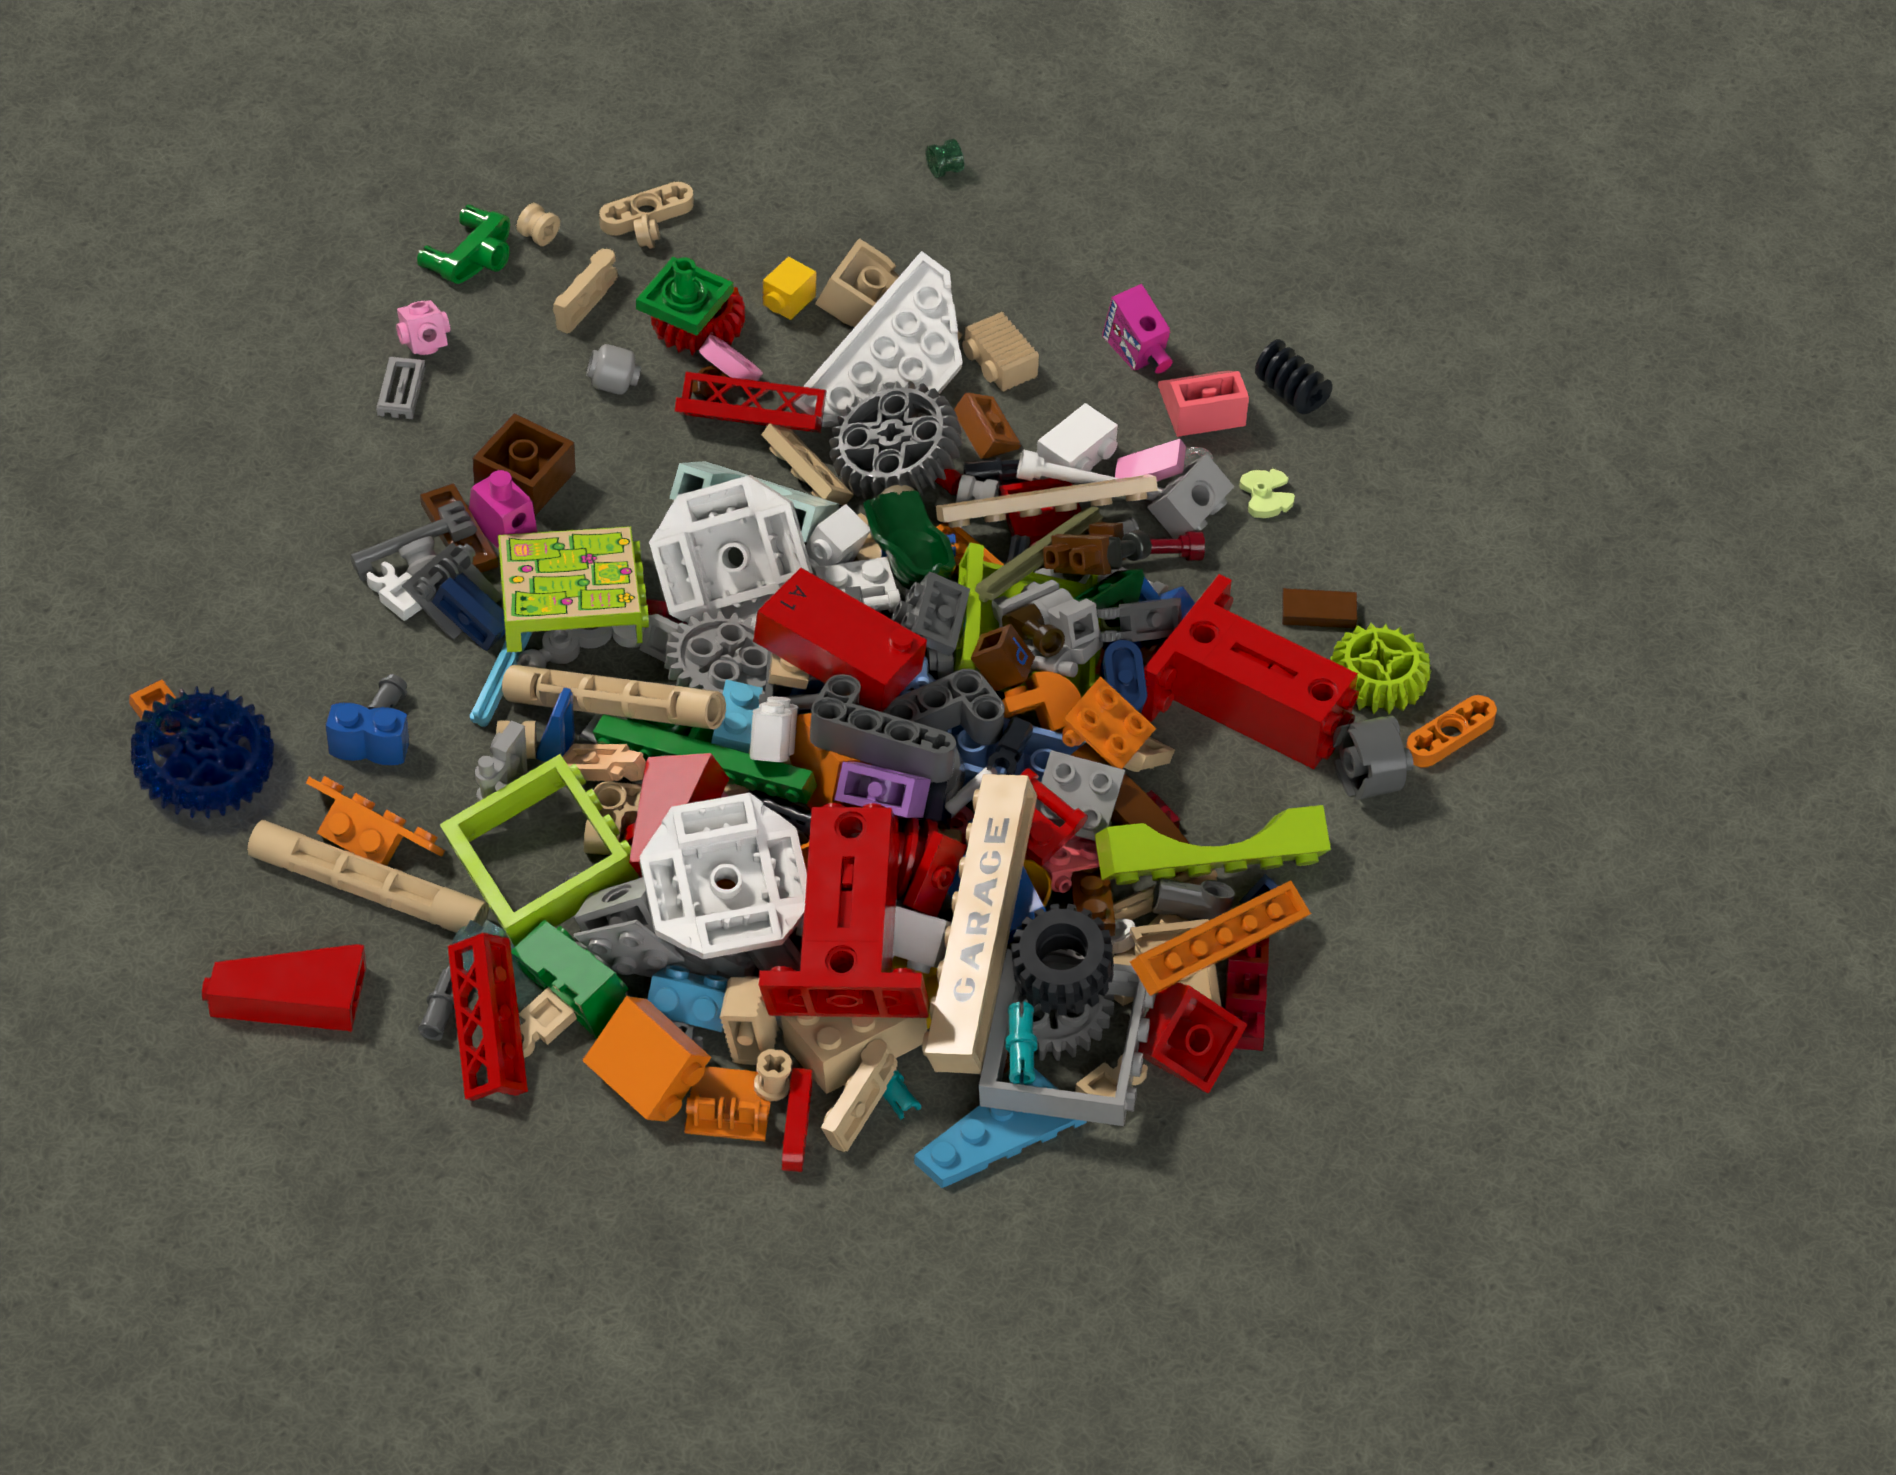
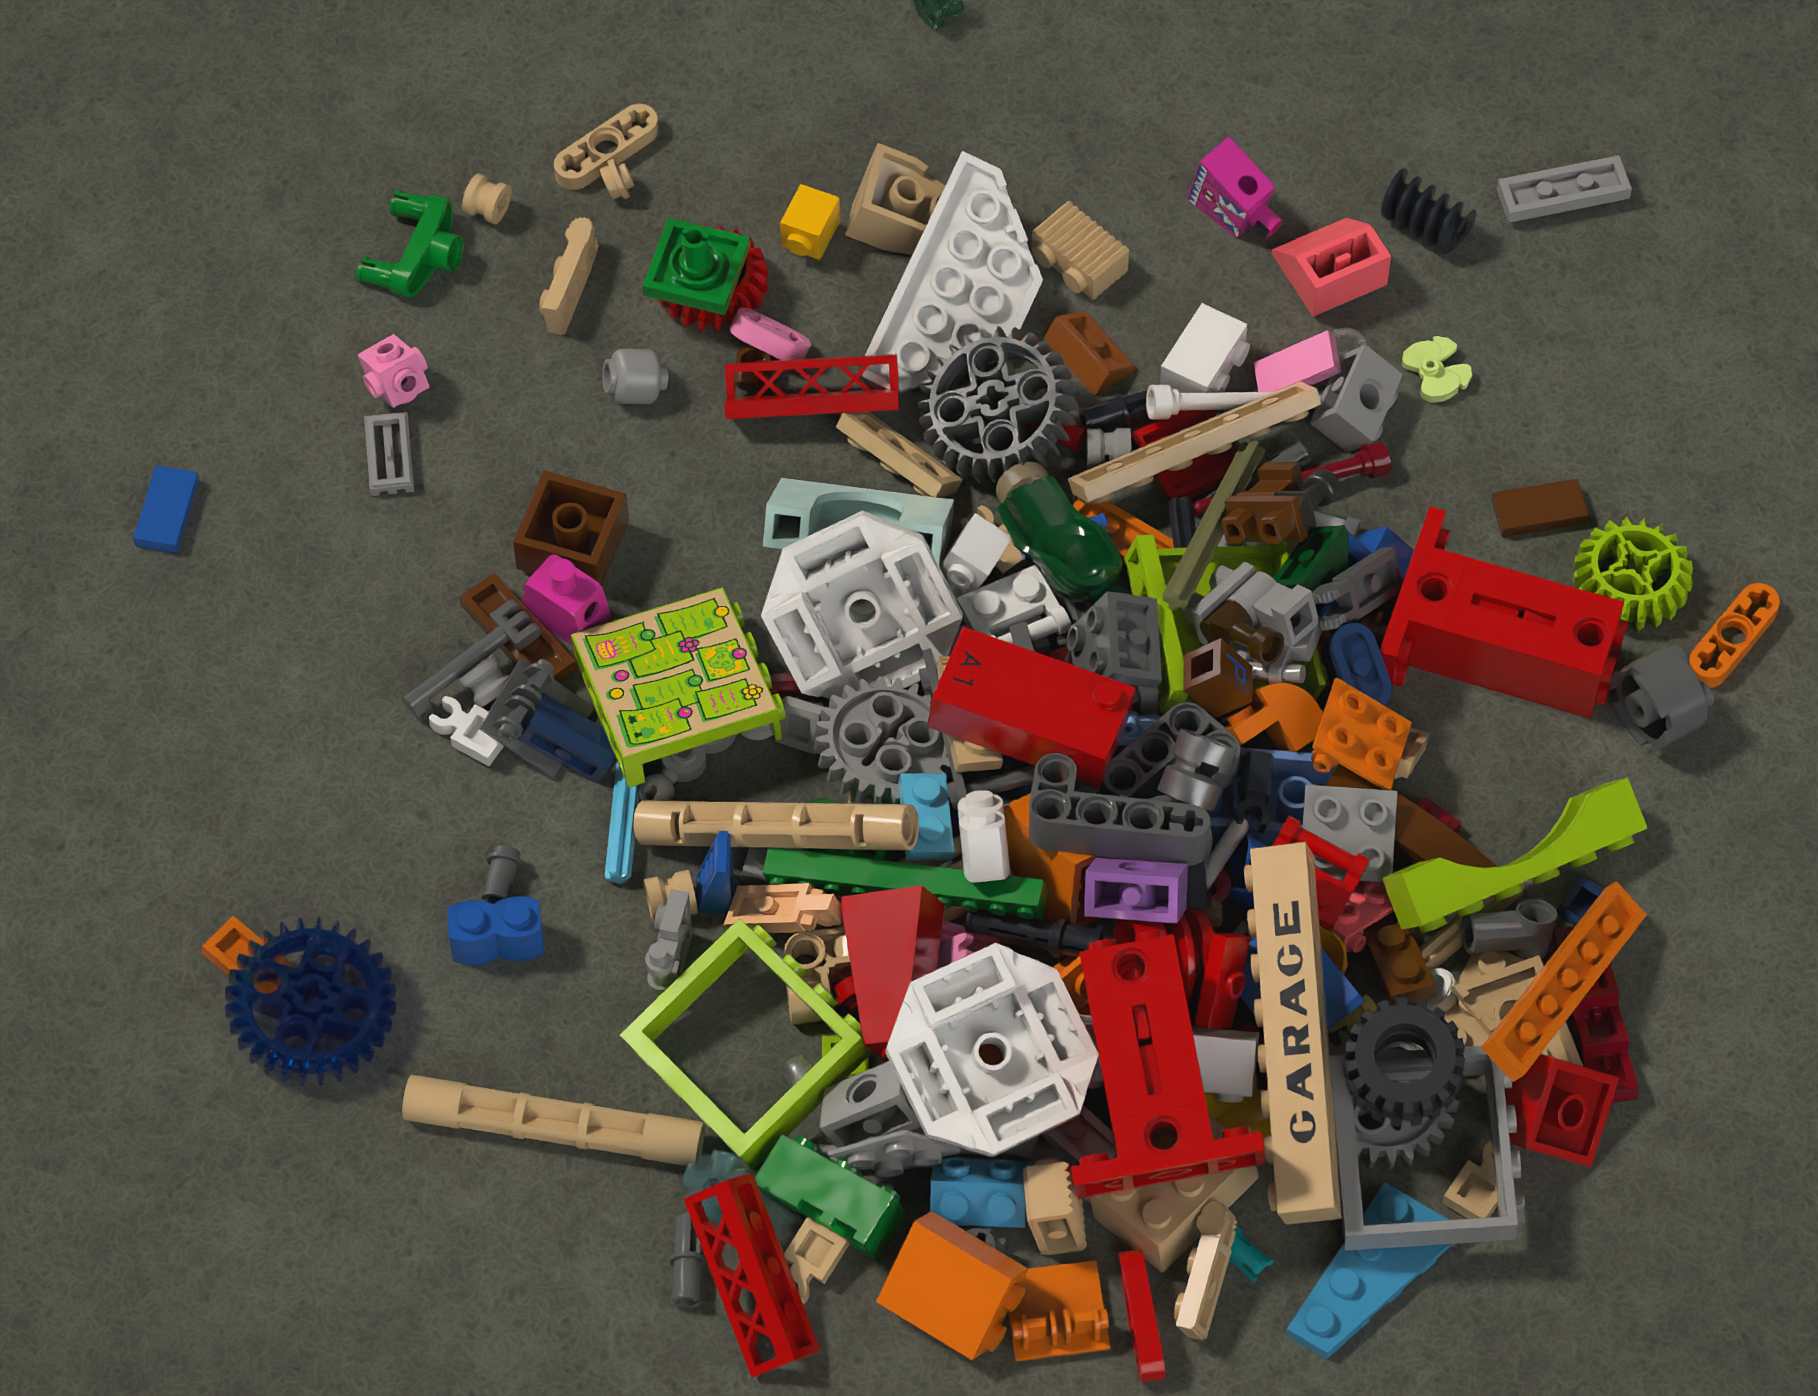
camera: 10 degrees left, 10 degrees up
(212, 391) = (166, 509): none -> blue tile
(290, 988) = (507, 1286): red slope -> none
(363, 831) = (530, 1056): orange bracket -> none
(772, 1076) = (1092, 1258): tan bush -> none
(962, 728) = (1194, 786): none -> flat silver wheel
(1021, 1043) = (1381, 1174): teal pin -> none
(1412, 384) = (1563, 188): none -> light grey plate

